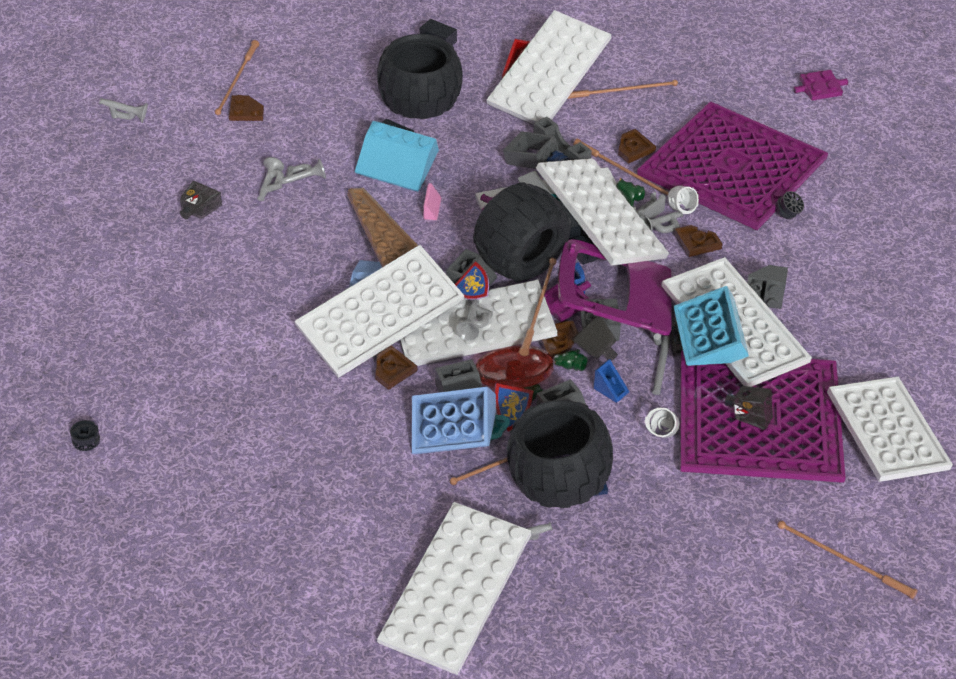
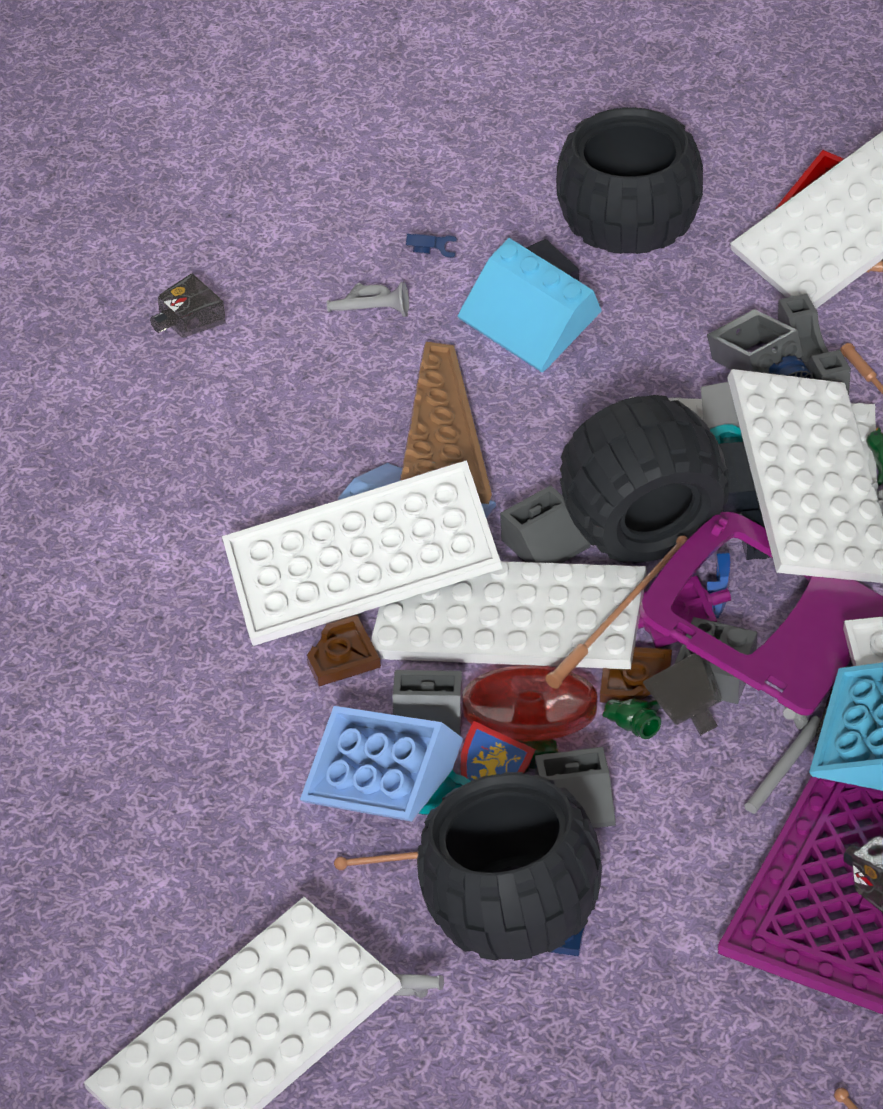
camera: 25 degrees right, 0 degrees up
(139, 111) = (175, 145): light grey piece -> none
(245, 109) = (341, 175): reddish brown plate -> none
(254, 45) = (410, 73): nougat piece -> none
(274, 169) = (330, 281): light grey piece -> none
(315, 136) = (424, 243): none -> dark blue plate
(431, 203) = (549, 396): bright pink slope -> none
(440, 30) = (710, 117): black brick -> none
(470, 328) = (480, 620): light grey piece -> none
(474, 283) = (529, 547): shield -> none
(609, 382) = (676, 769): blue slope -> none
(662, 418) = (732, 854): white helmet -> none

